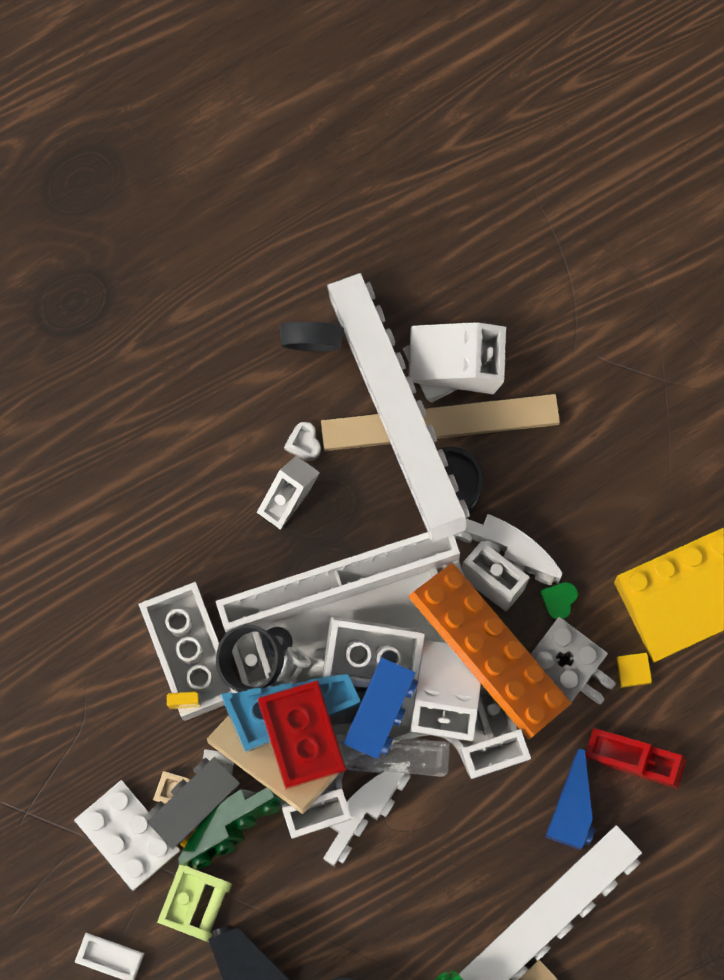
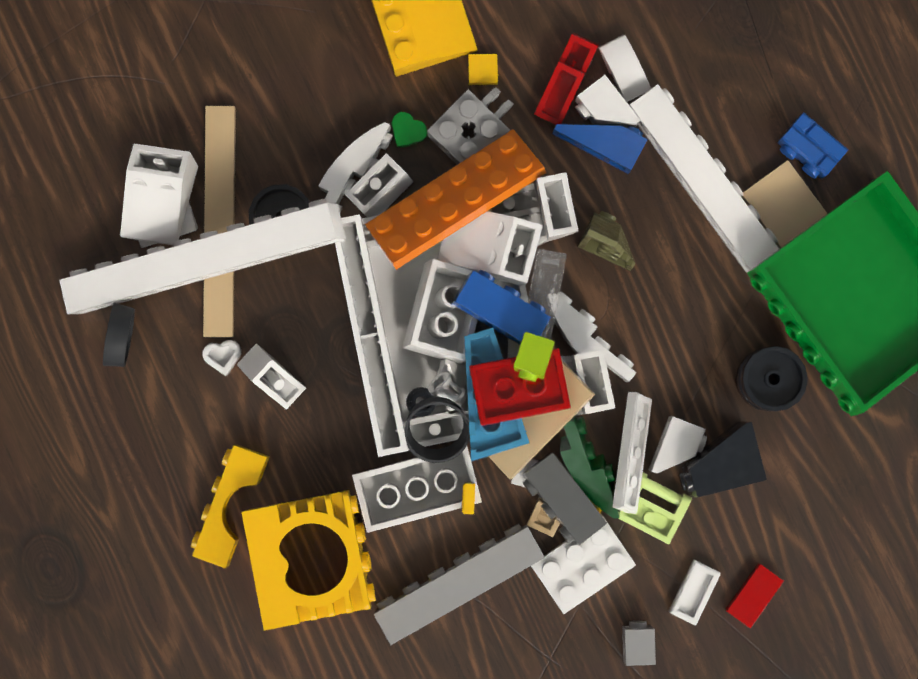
camera: 90 degrees left, 10 degrees up
(50, 902) = (638, 644): none -> light grey brick
(62, 521) = (264, 532): none -> yellow hose
(95, 707) = (457, 584): none -> light grey brick
(117, 458) = (216, 540): none -> yellow arch
(249, 870) = (632, 453): none -> white tile
(263, 920) = (677, 444): none -> white slope
(332, 741) = (533, 357): none -> lime brick
(471, 817) = (607, 240): none -> olive wedge
(613, 801) = (605, 105): none -> white slope
(656, 818) = (625, 68): none -> white slope

